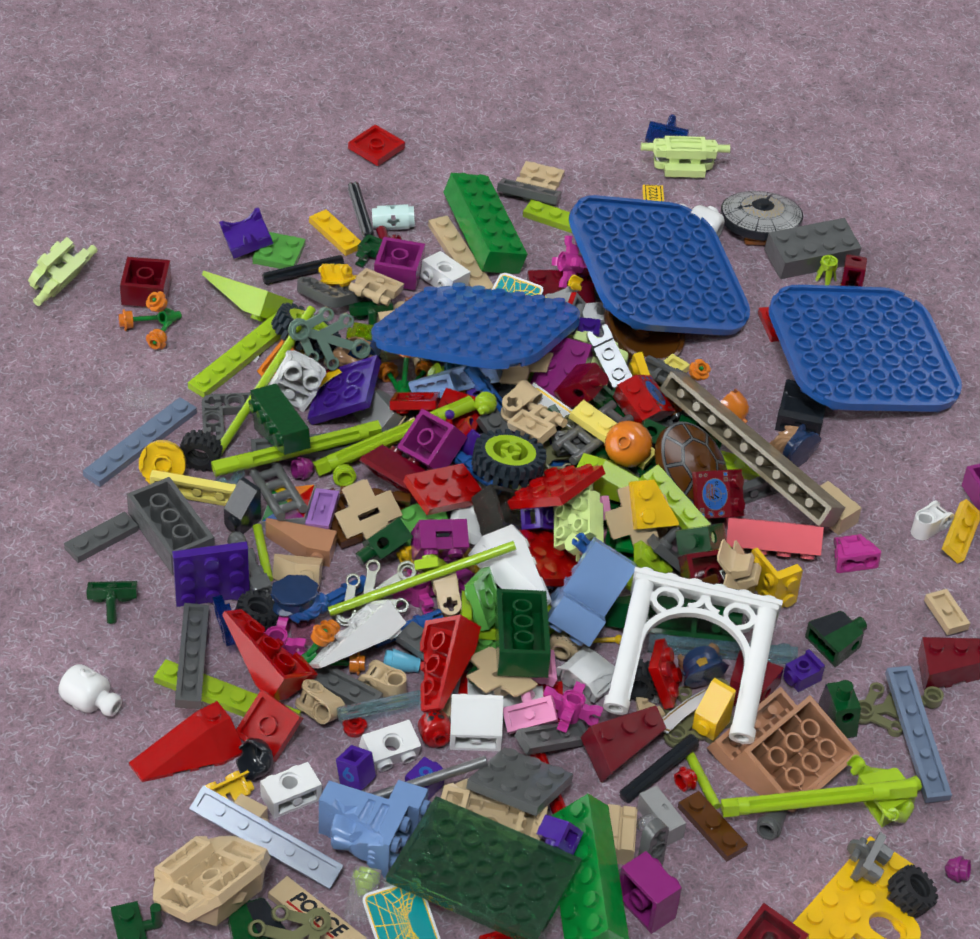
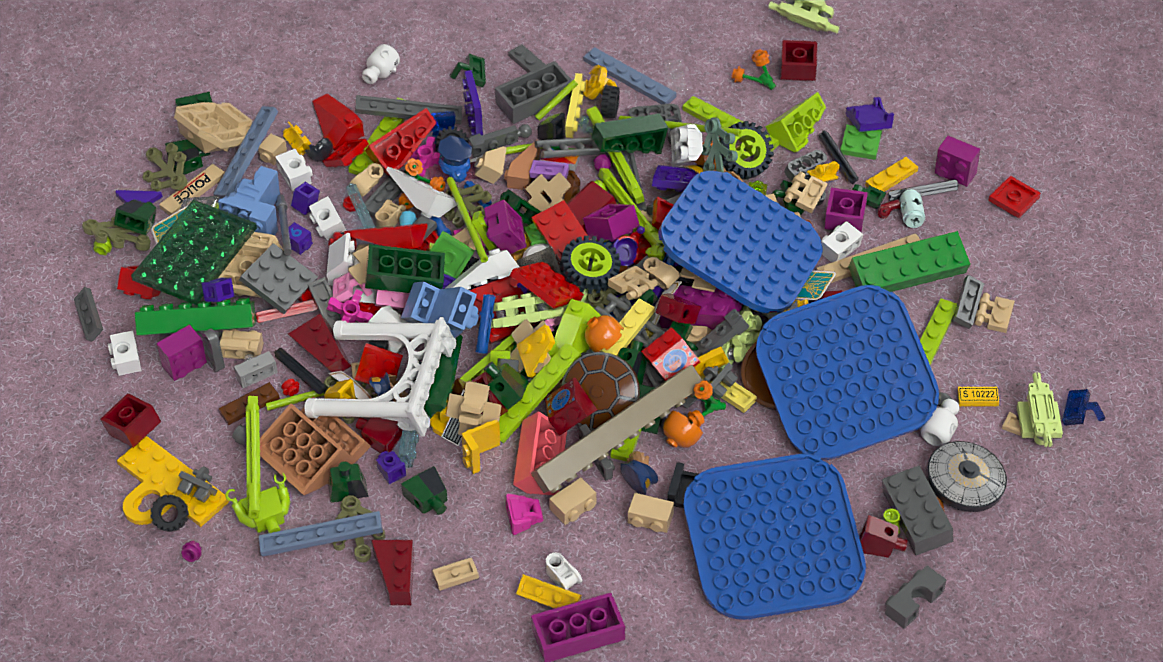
camera: 95 degrees right, 5 degrees up
(176, 478) = (556, 100): none -> lime bar
(331, 171) = (957, 160): none -> magenta brick
(686, 183) = (1012, 424): none -> tan tile
(840, 445) = (650, 513): none -> tan brick
(925, 271) = (924, 584): none -> dark grey arch

